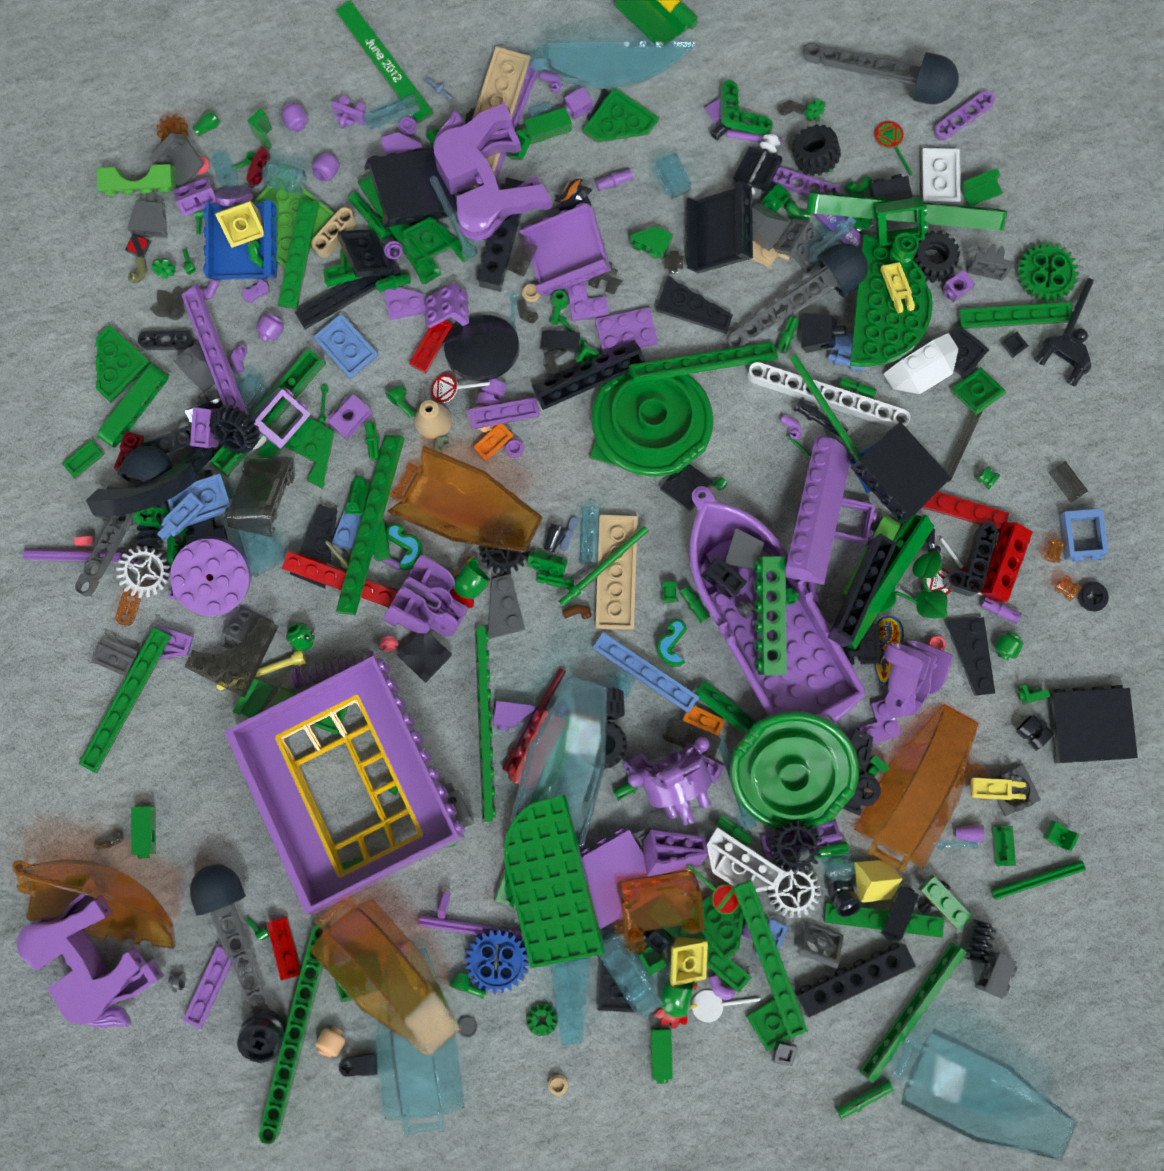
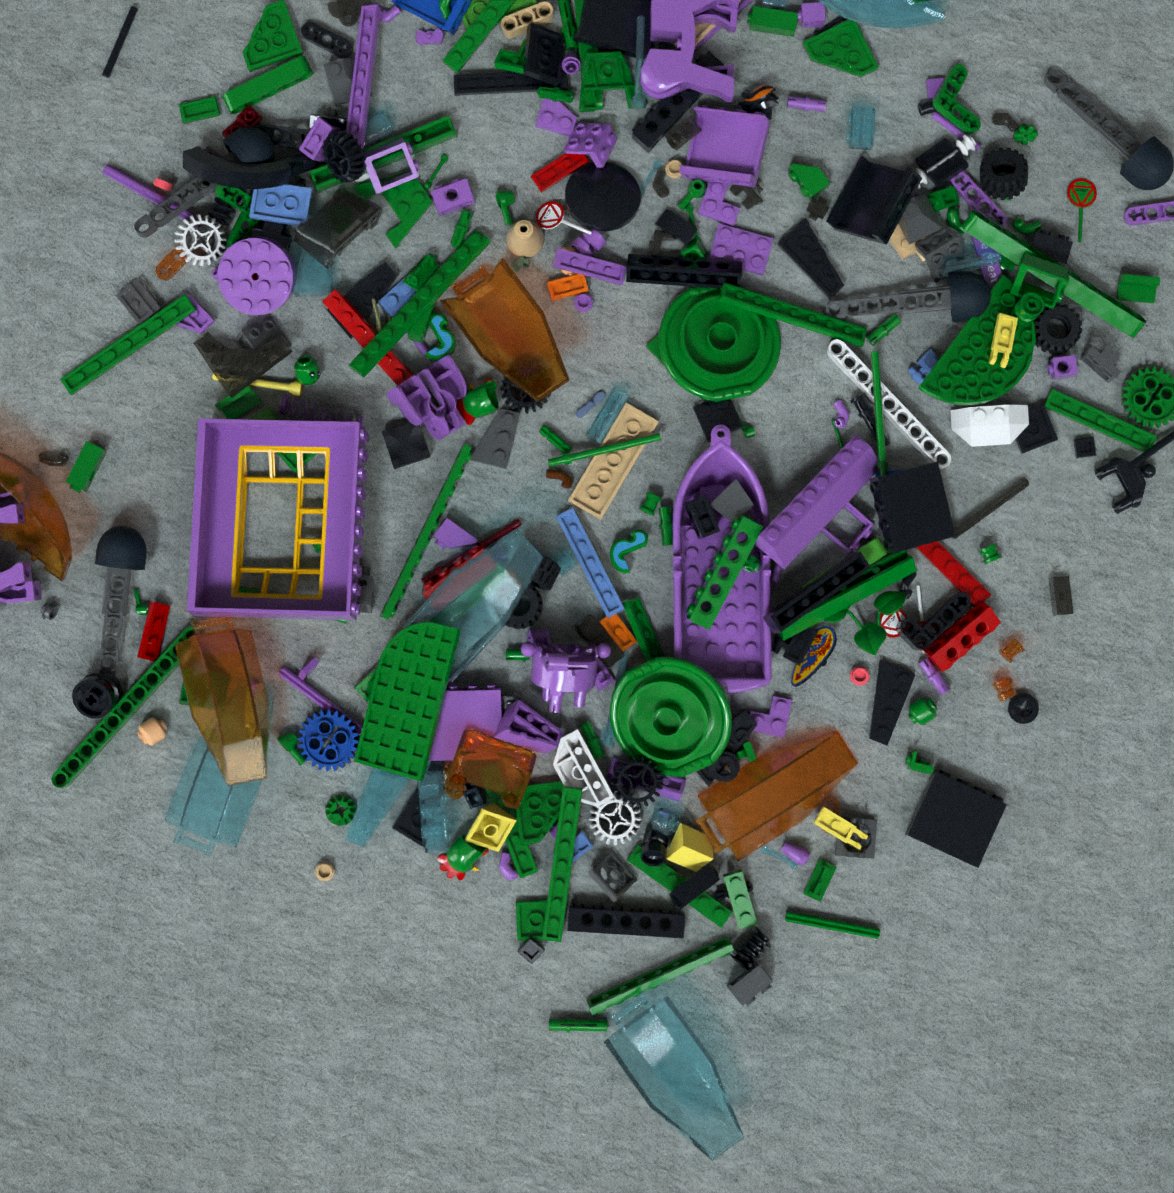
camera: 30 degrees right, 5 degrees up
(180, 516) = (258, 209): medium blue hinge -> none
(208, 989) = (72, 631): medium lavender plate -> none
(237, 358) = (382, 89): medium lavender arm -> none
(270, 327) = (424, 77): medium lavender head -> none
(345, 346) = (482, 130): medium blue plate -> none
(362, 1065) = (169, 764): black piece -> none
(388, 643) = (380, 417): coral plate -> none
(468, 1027) = (274, 782): dark grey piece -> none
(525, 143) = (741, 28): green bracket -> none
(538, 561) = (562, 427): green hinge -> none
(553, 537) = (575, 400): black cone -> none
(652, 960) = (460, 811): green panel -> none
(661, 1055) = (426, 894): green brick -> none
(711, 1006) = (490, 878): white piece -> none
(723, 897) = (549, 791): piece -> none
(745, 609) = (706, 554): dark grey plate -> none
(820, 332) = (913, 343): black torso -> none
(833, 849) = (667, 802): green axle -> none
(856, 387) = (919, 411): green axle -> none
(913, 675) = (822, 690): medium lavender piece -> none
(940, 175) = (1106, 257): white plate -> none
(978, 391) = (1026, 471): green tile -> none
(1029, 727) = (901, 790): black wheel -> none
(1061, 836) = (873, 898): green bracket -> none
(1067, 536) = (1054, 632): medium blue window -> none

